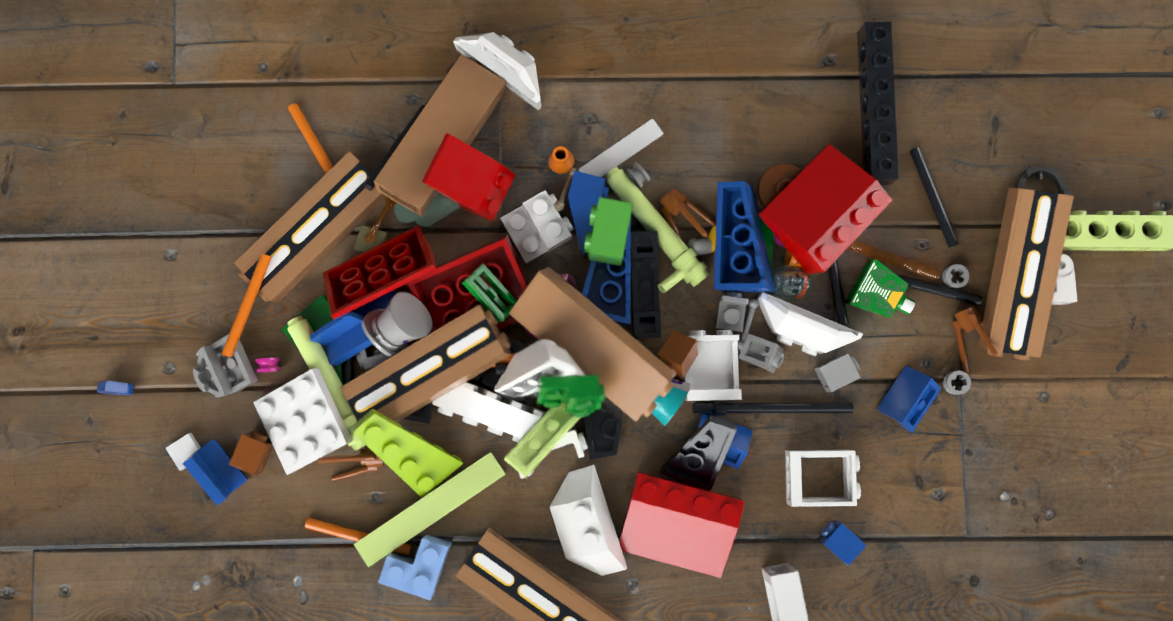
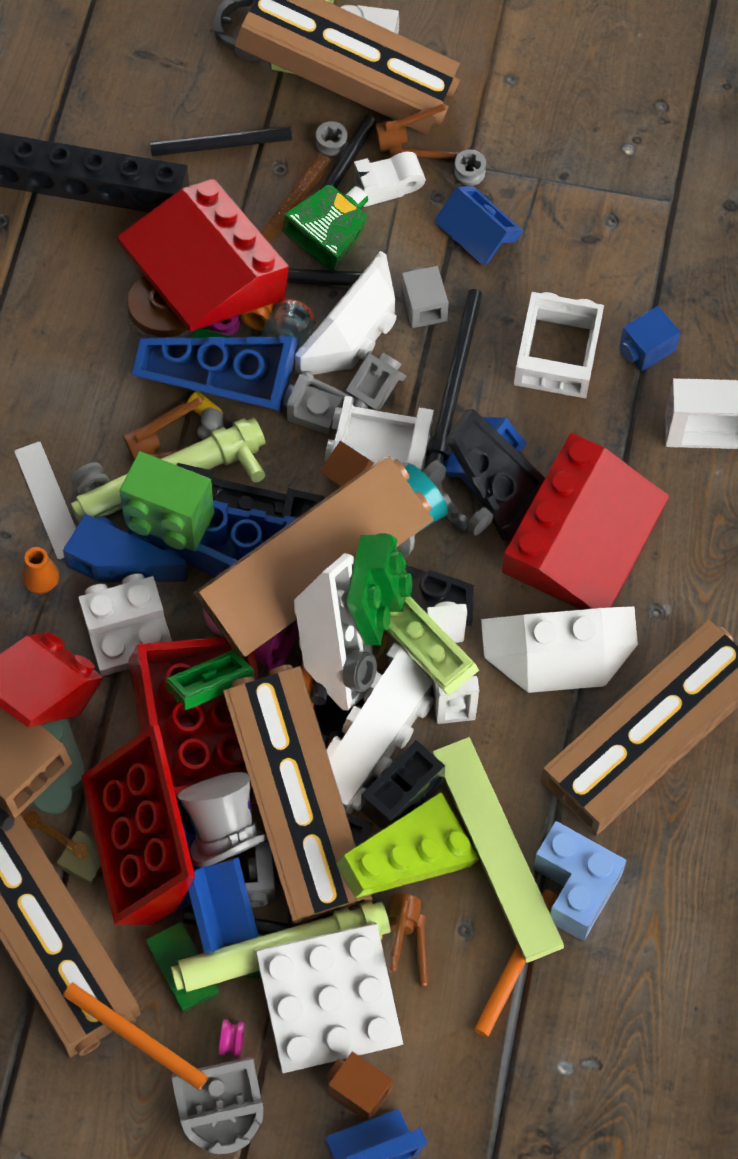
camera: 80 degrees left, 20 degrees down
(454, 438) = (403, 786): none -> black brick
(515, 393) = (359, 670): none -> dark grey tile
(559, 205) = (105, 579): dark tan hinge -> none
(672, 427) = (477, 523): none -> dark grey piece
(931, 325) = (389, 177): none -> white leg

